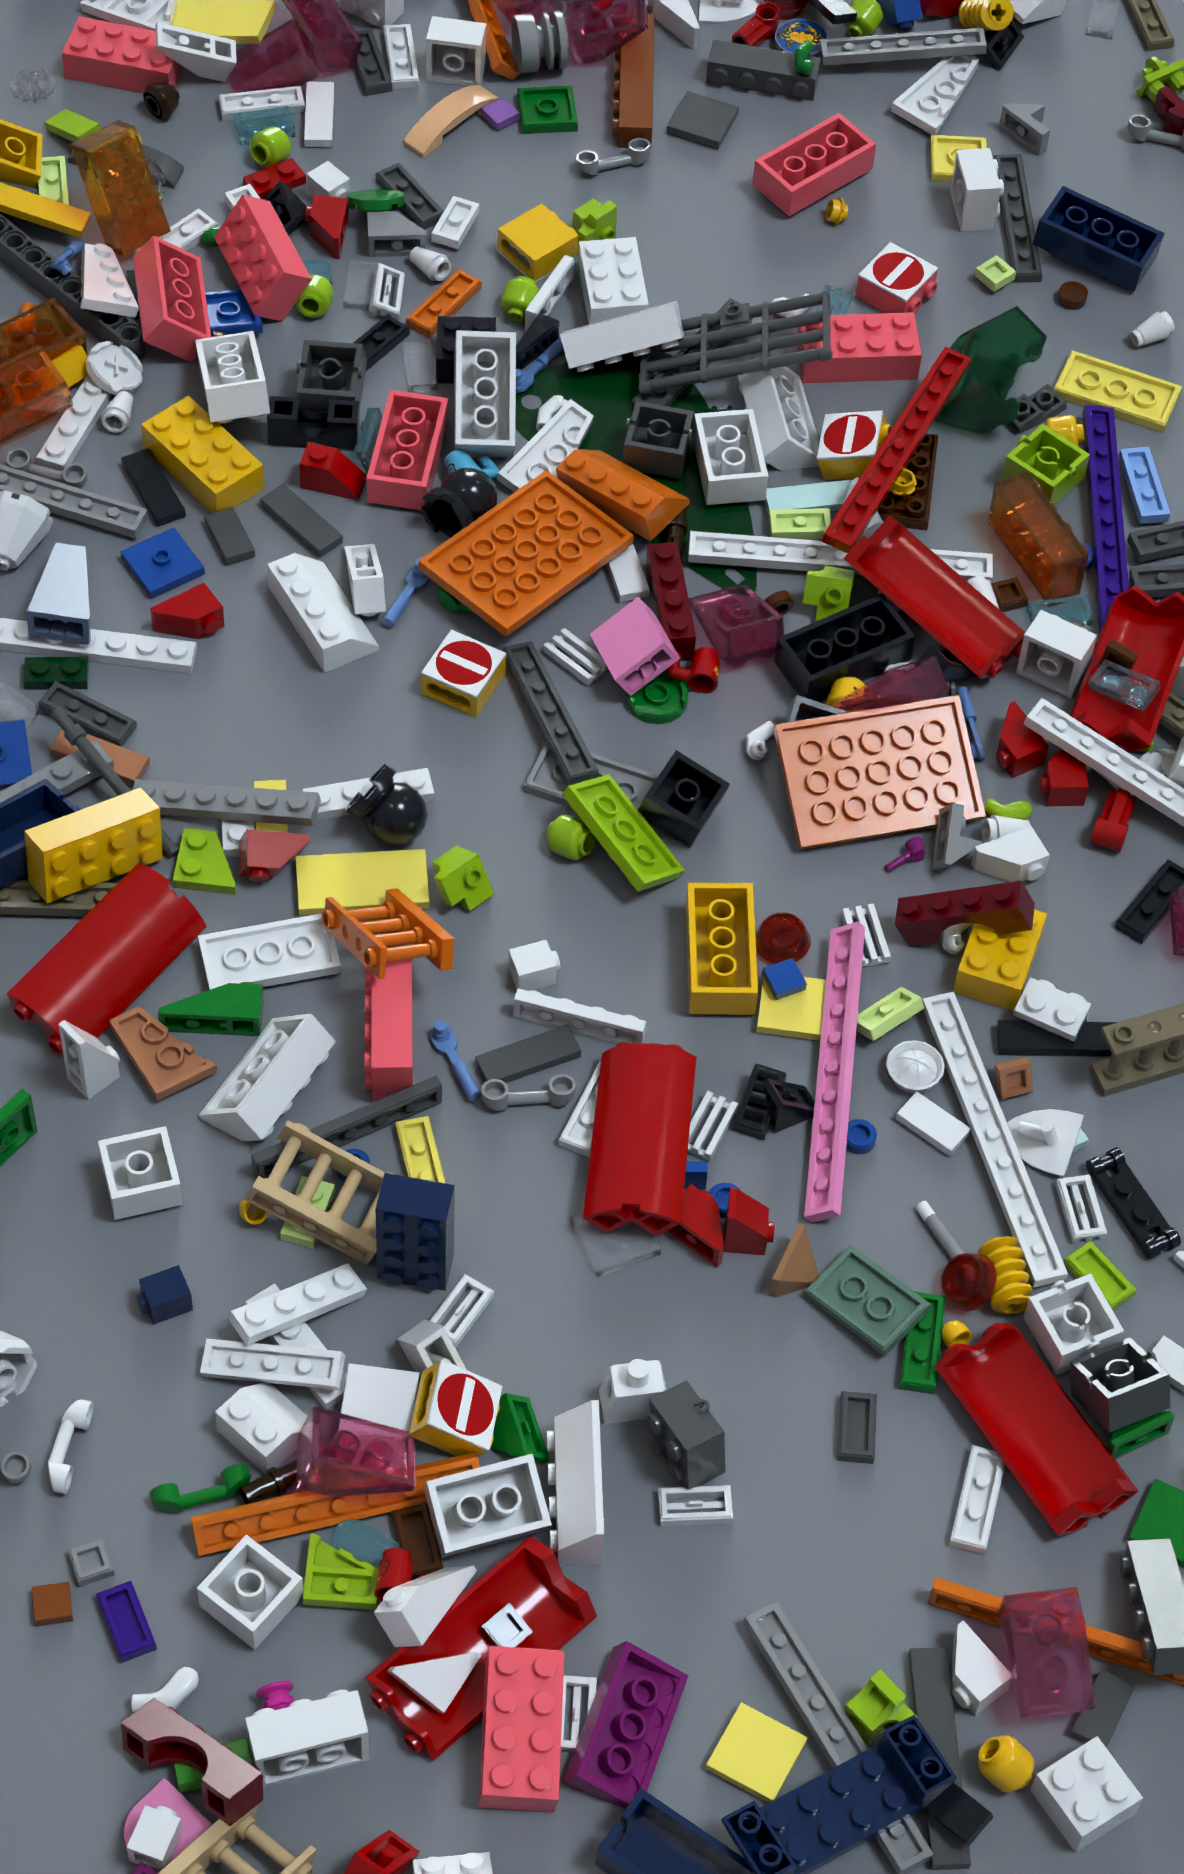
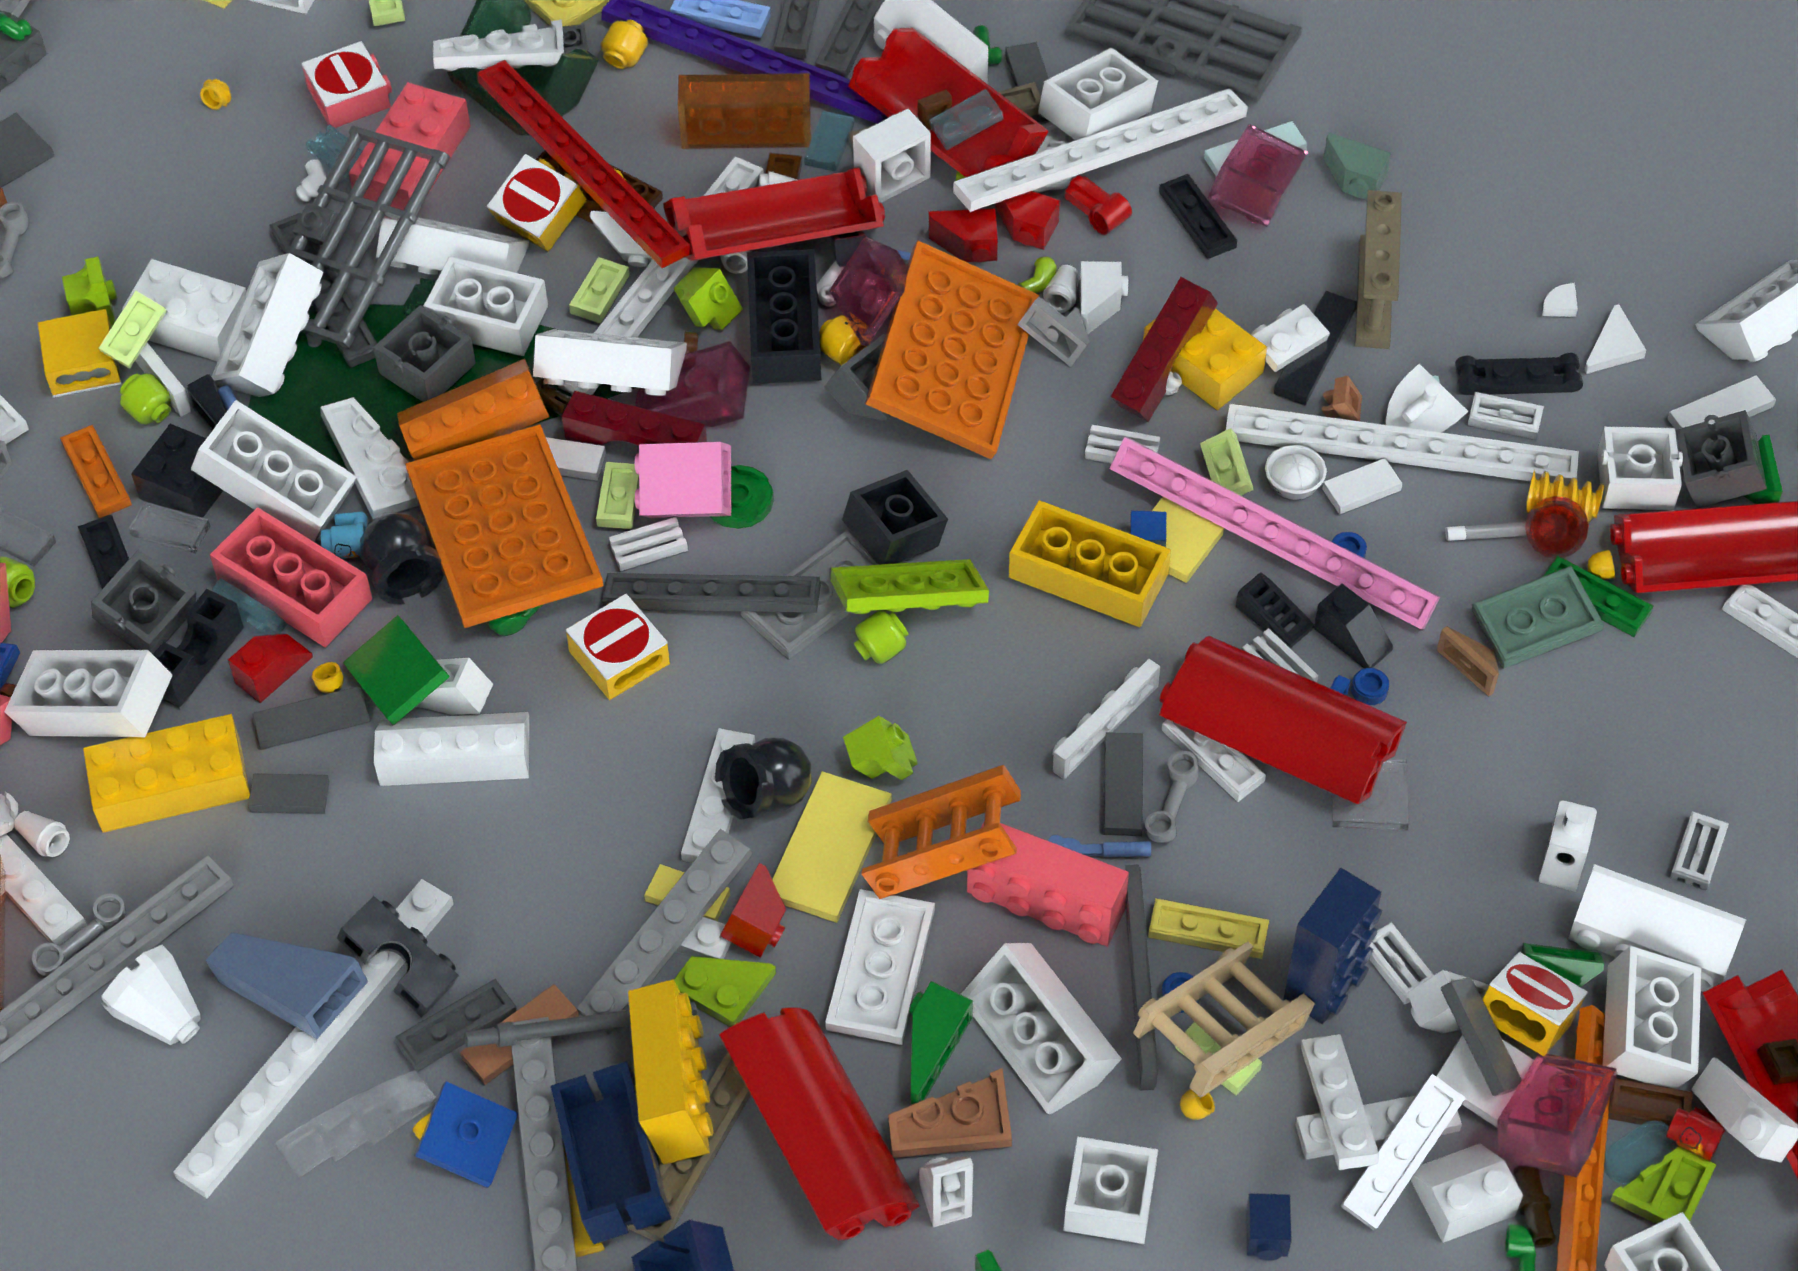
camera: 60 degrees left, 0 degrees up
(44, 671) = (375, 1036): dark green plate -> none
(113, 675) = (377, 930): none -> black arch
(153, 487) = (170, 841): black tile -> none
(162, 562) = (285, 872): blue plate -> none
(189, 614) = (383, 864): red slope -> none
(337, 513) = (328, 677): none -> yellow hinge
(359, 545) = (396, 669): none -> green tile
(383, 306) = (45, 513): white tile -> none
(397, 1376) = (1481, 1036): none -> dark grey tile
(415, 580) = (458, 644): medium blue piece -> none
(432, 264) = (34, 459): white cone -> none
(533, 965) = (1022, 733): white brick -> none
(548, 409) = (311, 435): white arm -> none
(561, 254) = (132, 329): none -> yellowish green plate
(592, 617) = (617, 496): none -> yellowish green plate
(686, 1435) = (1643, 815): dark grey brick -> none
(700, 1225) = (1417, 710): red slope -> none
(703, 670) = (743, 442): red piece -> none
(720, 549) = (608, 360): none -> white slope
(746, 1225) = (1418, 678): red slope -> none
(756, 740) = (844, 439): white arm -> none
(772, 1163) = (1352, 627): none -> black slope
(782, 938) = (1098, 505): clear red hat -> none
(787, 1103) = (1295, 585): black slope -> none
(808, 496) = (570, 268): light aqua tile -> none
(814, 164) = (148, 82): coral brick -> none
(857, 1427) = (1666, 685): dark grey tile -> none
(915, 853) = (1045, 367): magenta hand -> none
(989, 356) = (517, 49): none -> white wing
(1049, 460) = (653, 68): lime brick -> none
(1108, 1278) = (1579, 432): lime tile -> none

